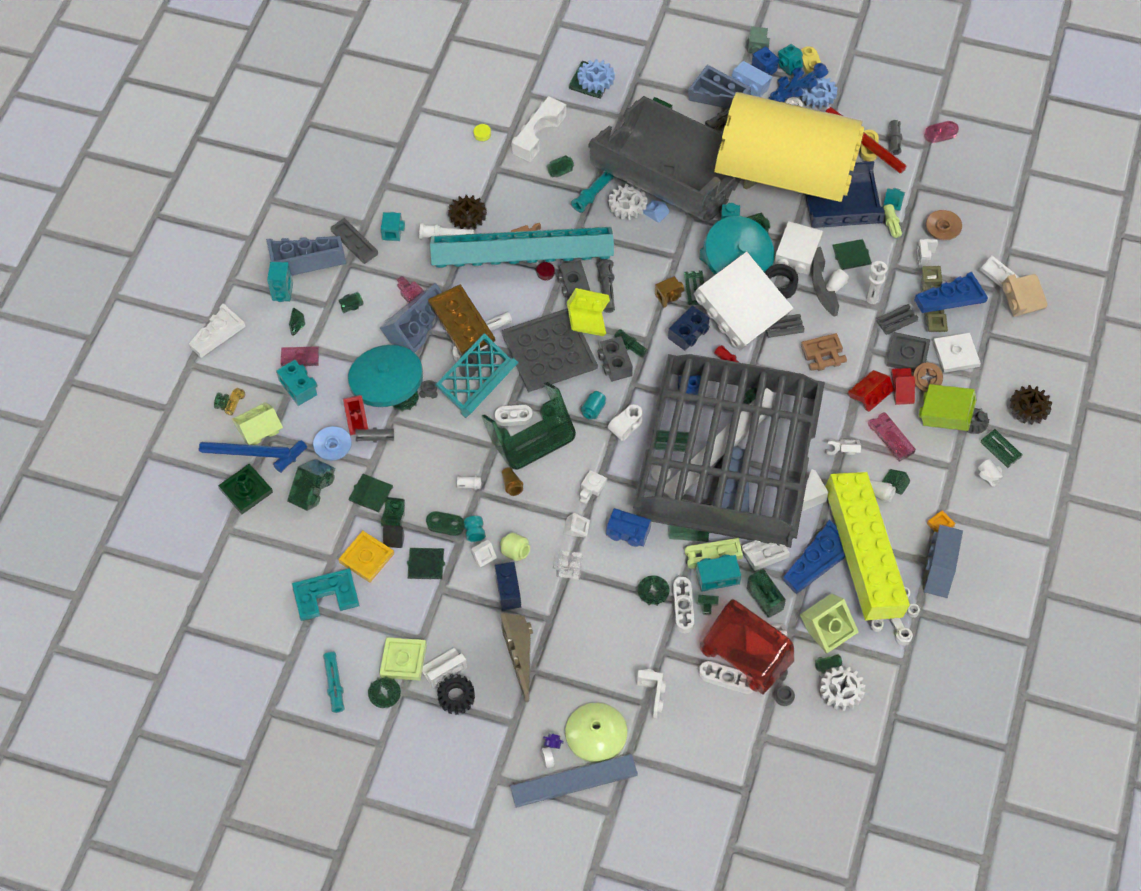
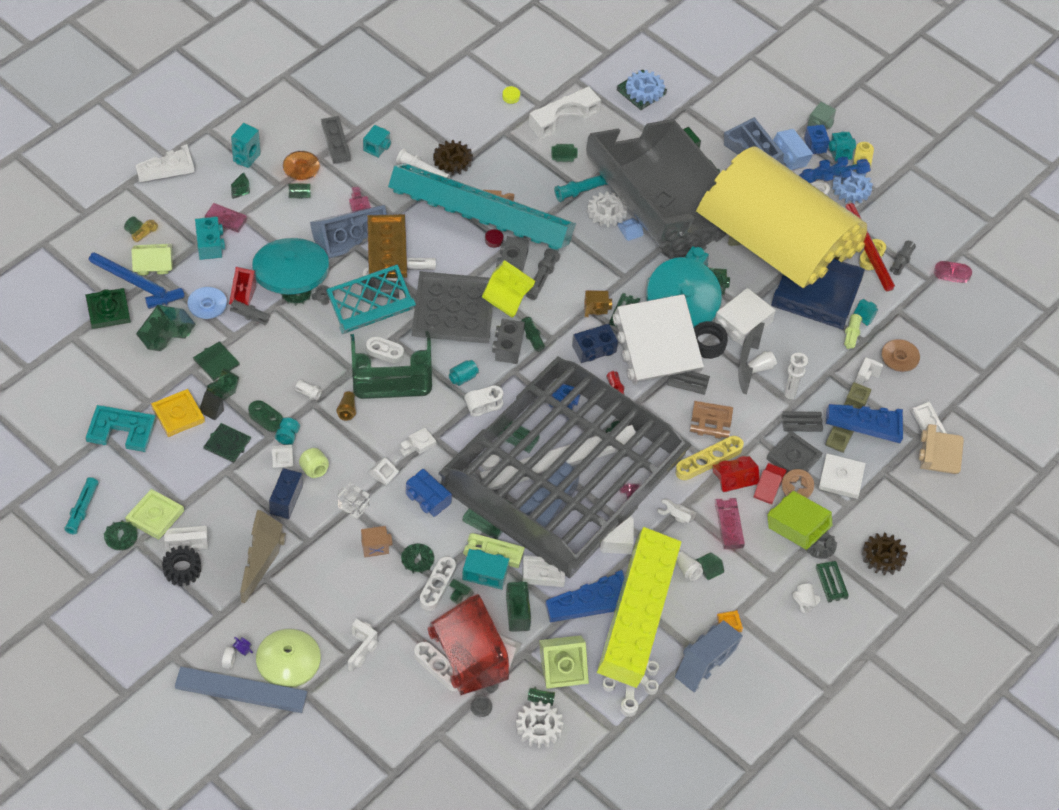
camera: 20 degrees right, 5 degrees down
(307, 254) = (284, 133): sand blue wedge -> none
(335, 273) = (301, 165): none -> clear orange dish
(610, 592) = (375, 541): none -> medium nougat brick
(797, 444) = (629, 489): none -> clear pink tile
(841, 386) = (707, 455): none -> light yellow beam
(852, 254) = (794, 342): clear green piece -> none

